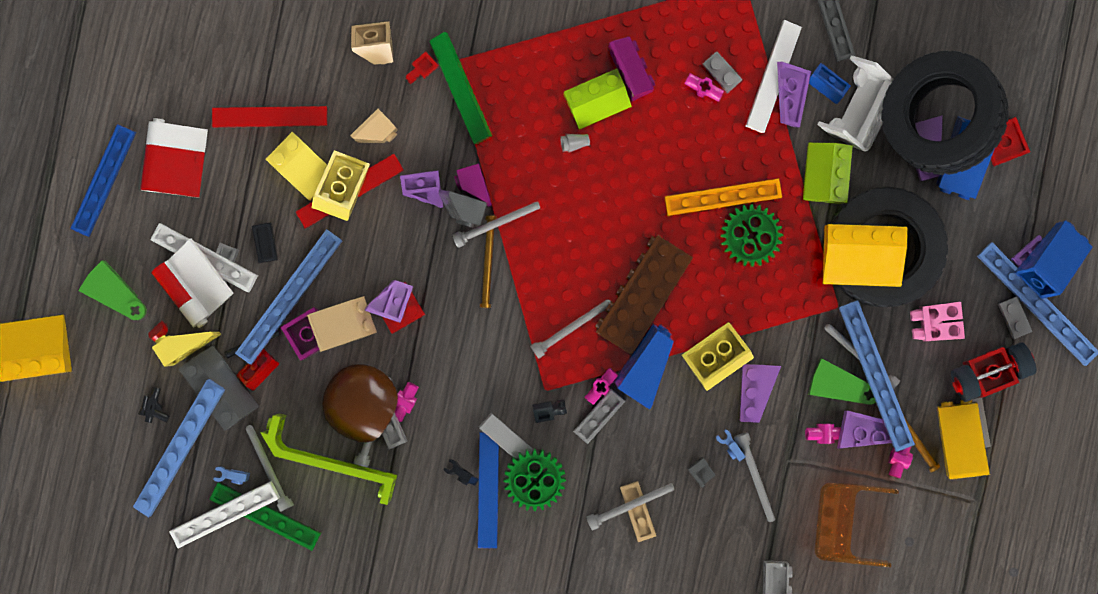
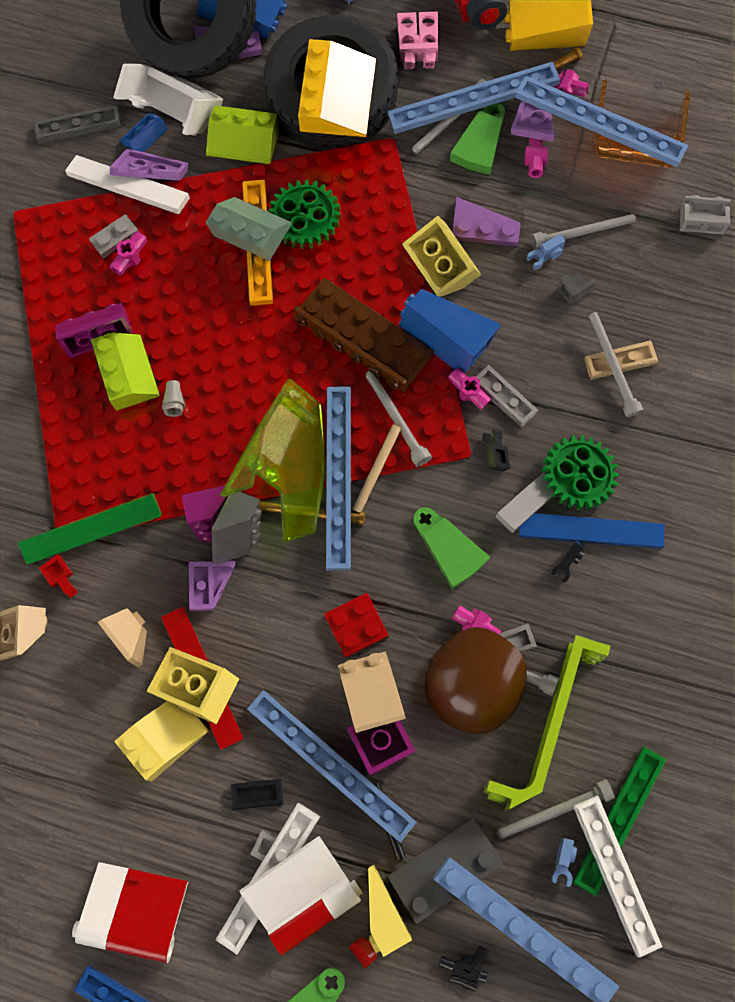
camera: 80 degrees left, 15 degrees down
(256, 373) = (429, 820): red slope -> none
(270, 116) = (93, 777): red tile -> none
(391, 301) = (347, 628): medium lavender wing -> none
(461, 238) = (275, 539): light grey piece -> none
(463, 379) = (450, 548): none -> bright green piece
(515, 284) = (338, 479): none -> medium blue plate
(526, 243) = (289, 457): none -> clear neon green windscreen
(526, 314) = (376, 469): none -> tan bar
(732, 189) = (248, 227): none -> sand green slope
(851, 488) = (601, 121): none -> medium blue plate

